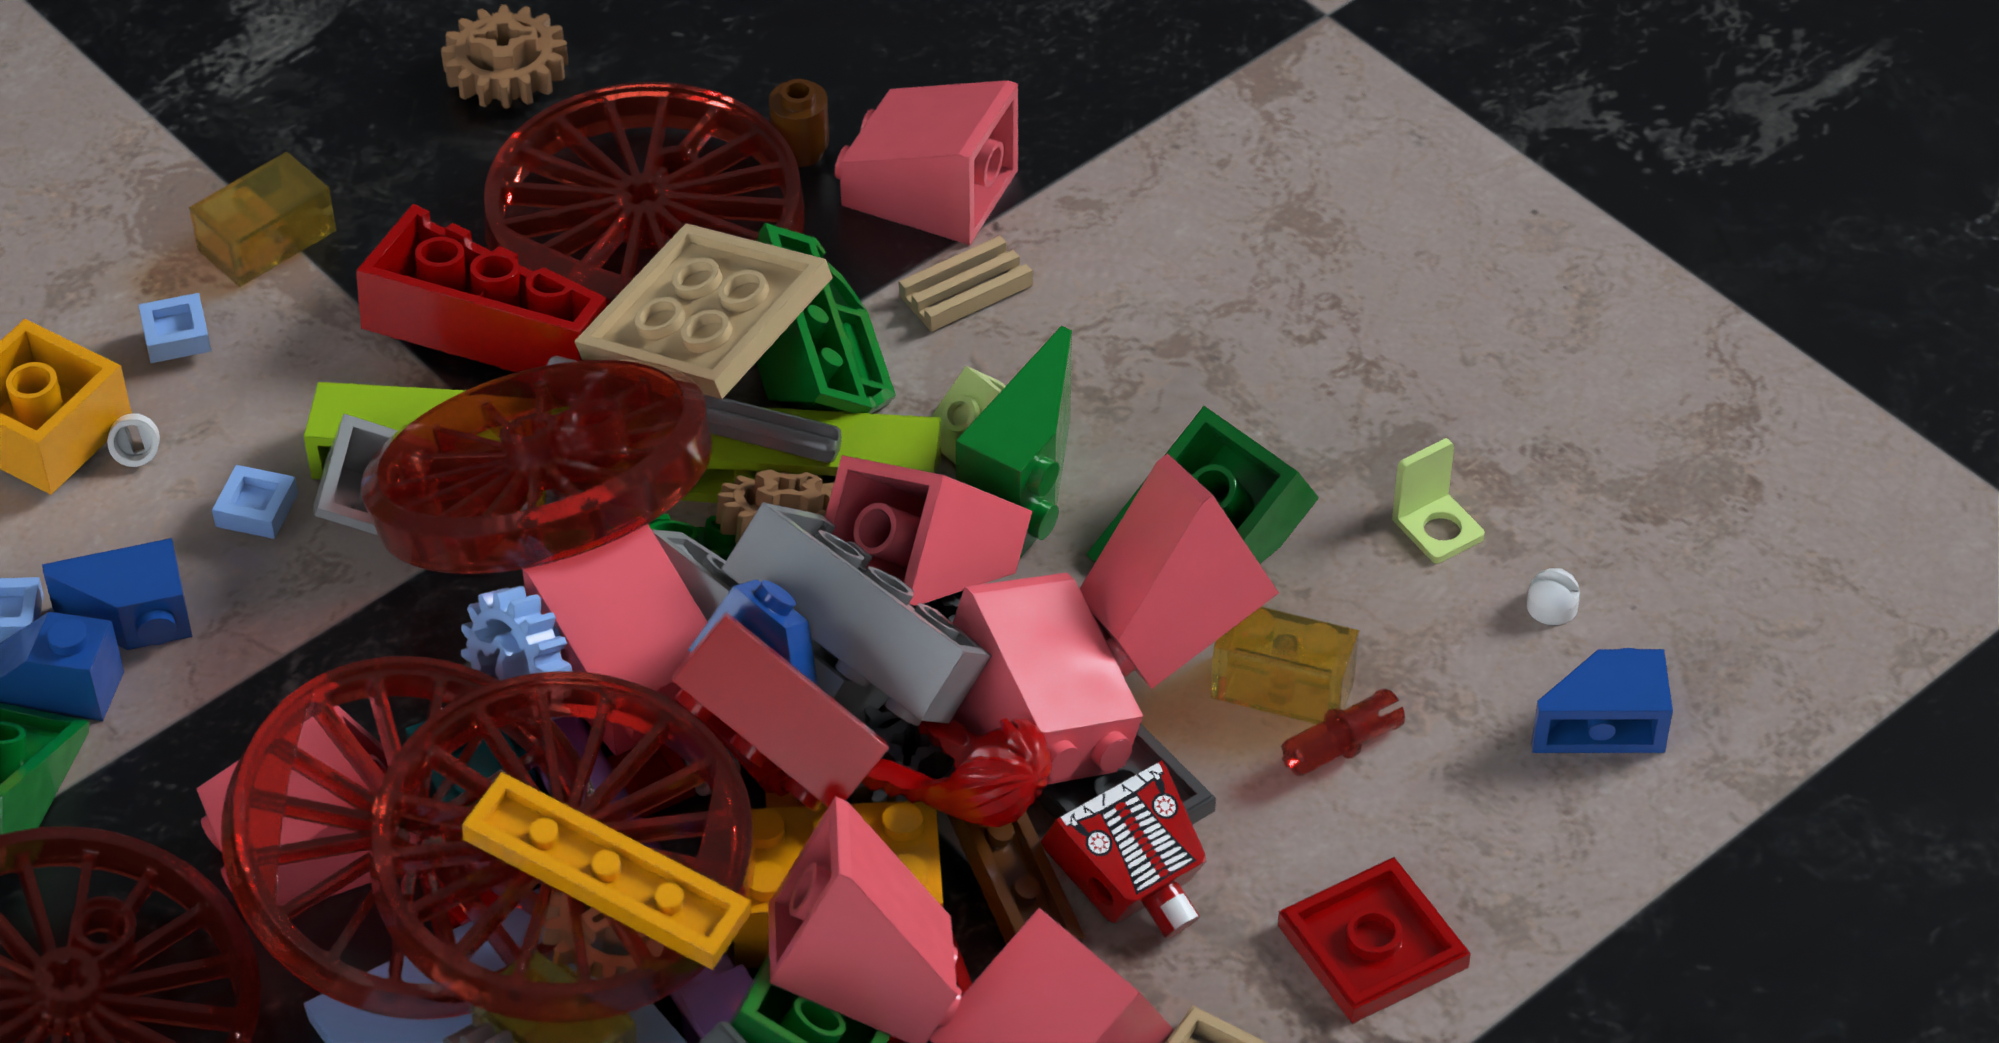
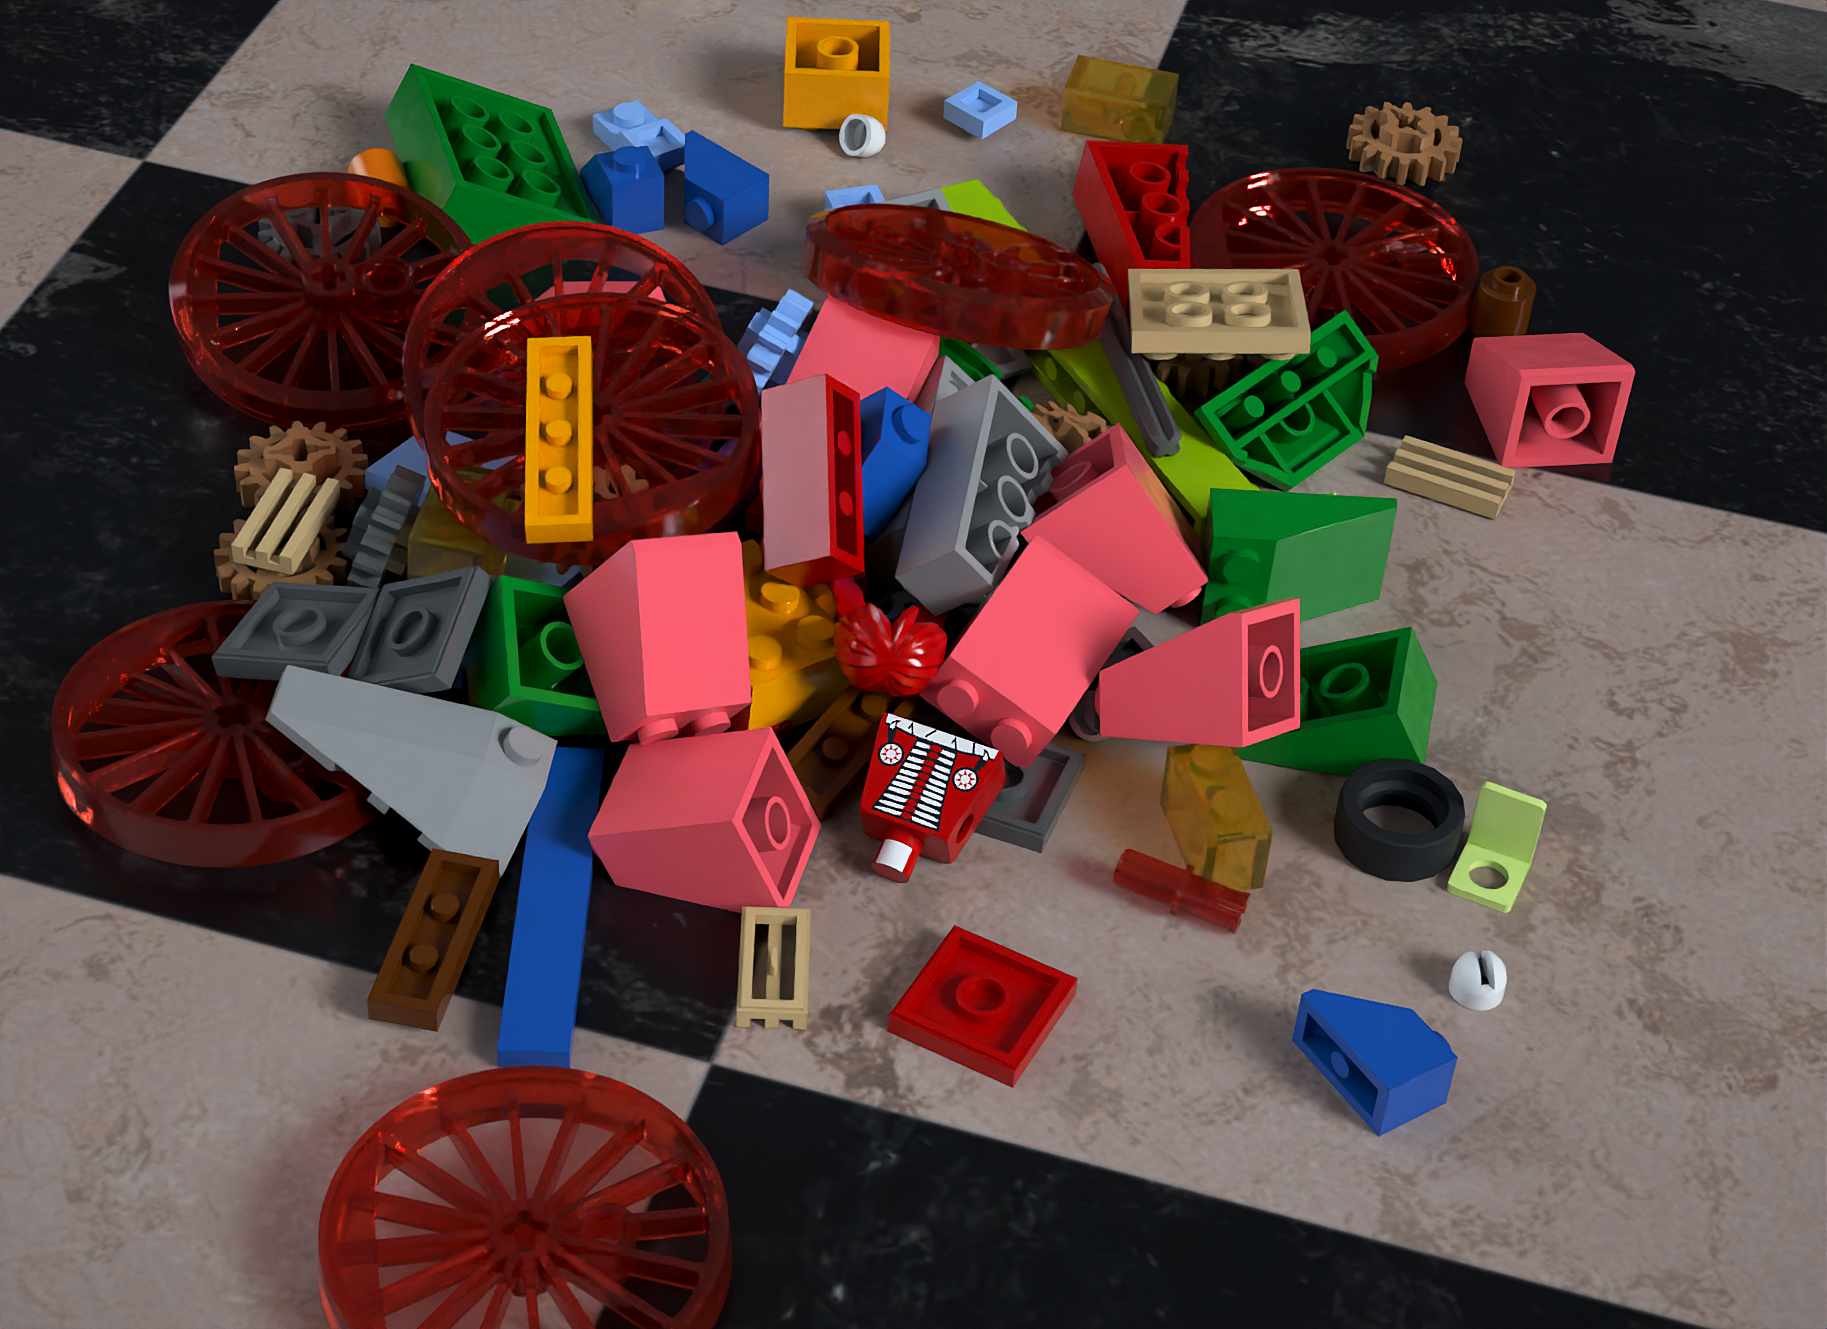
camera: 55 degrees right, 5 degrees down
(1350, 582) = (1393, 854): none -> black tyre

